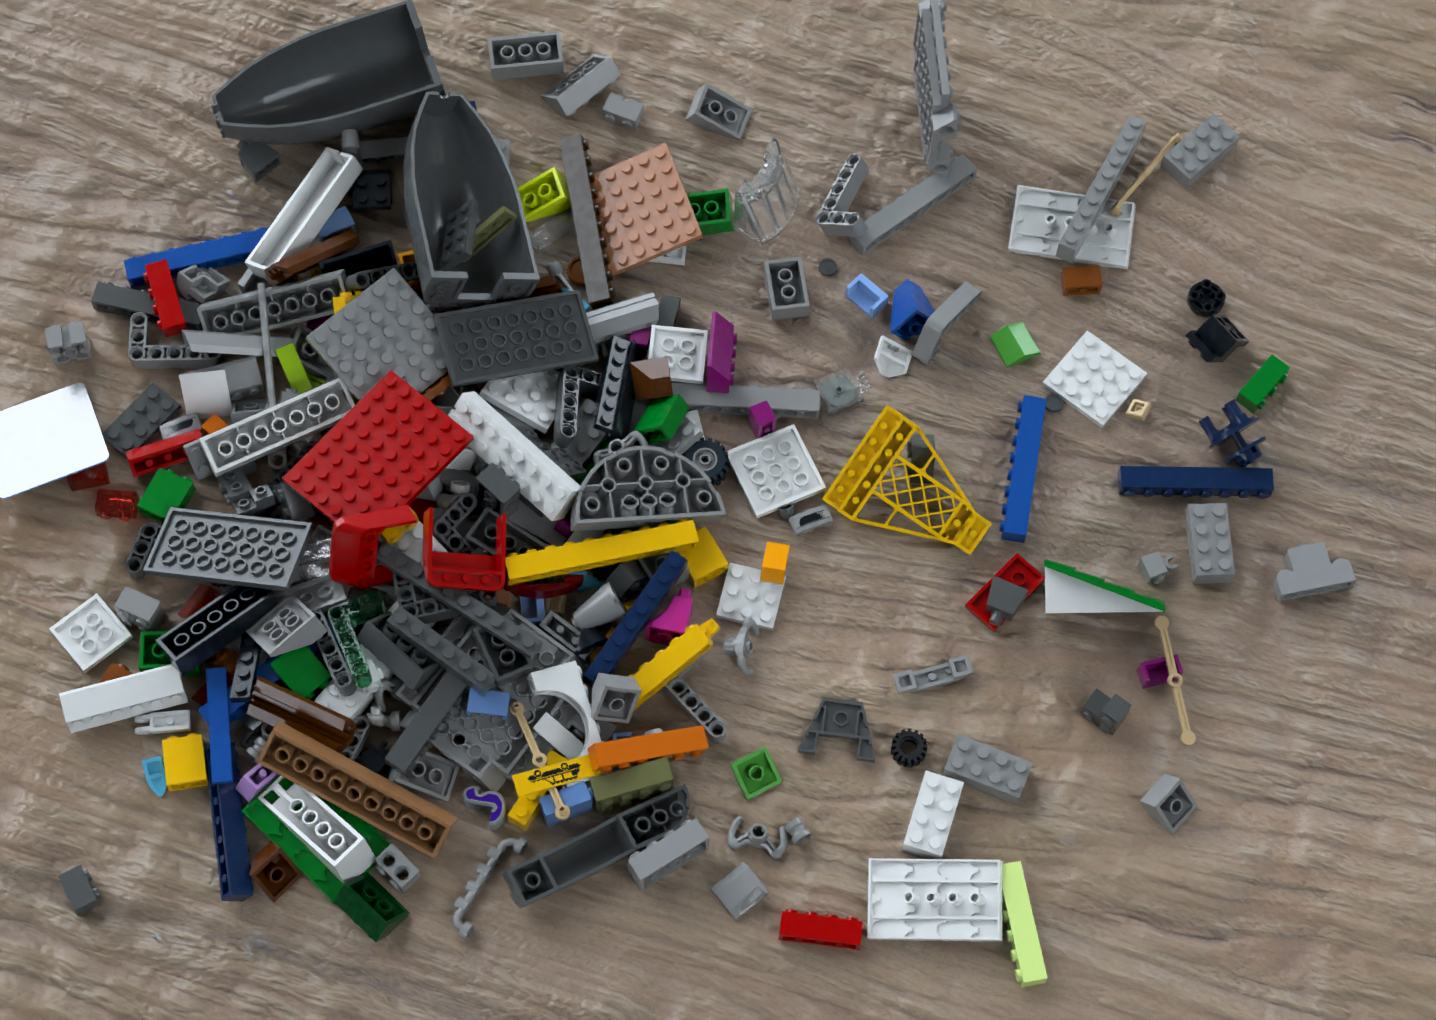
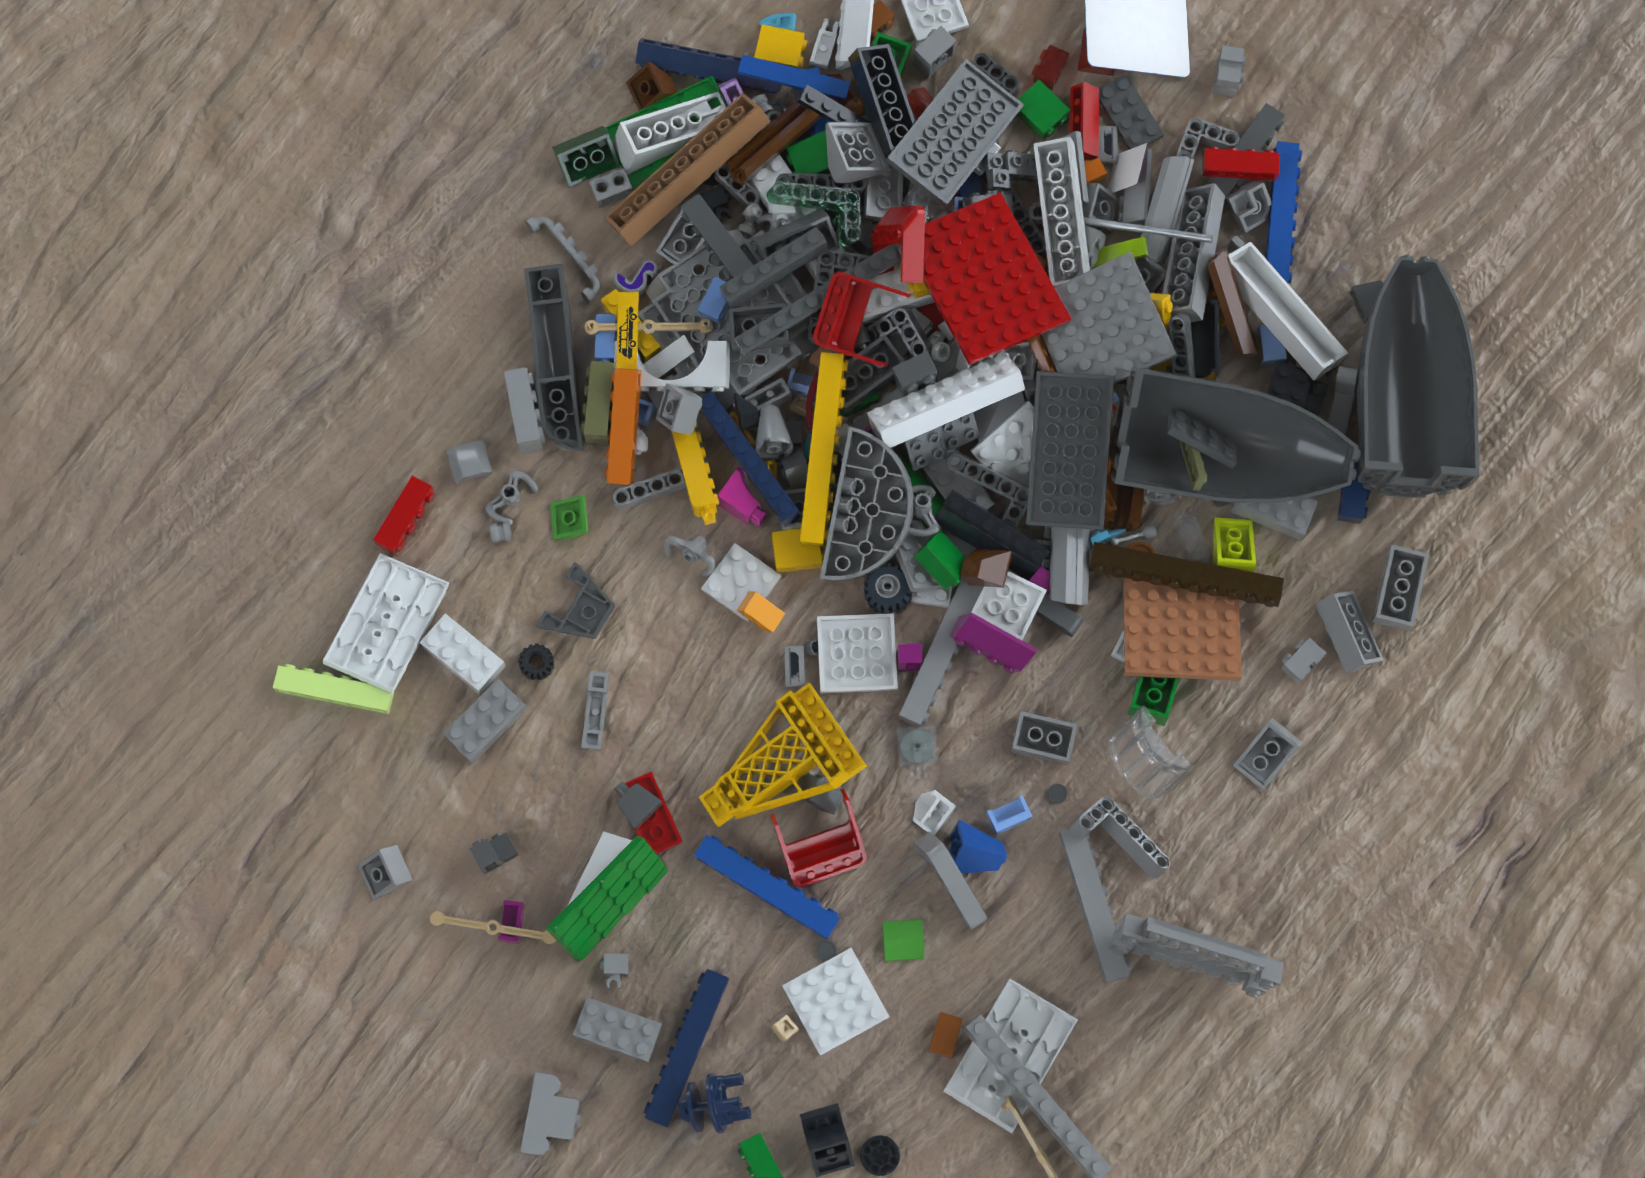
camera: 110 degrees right, 10 degrees up
(969, 430) = (825, 852): none -> red windscreen

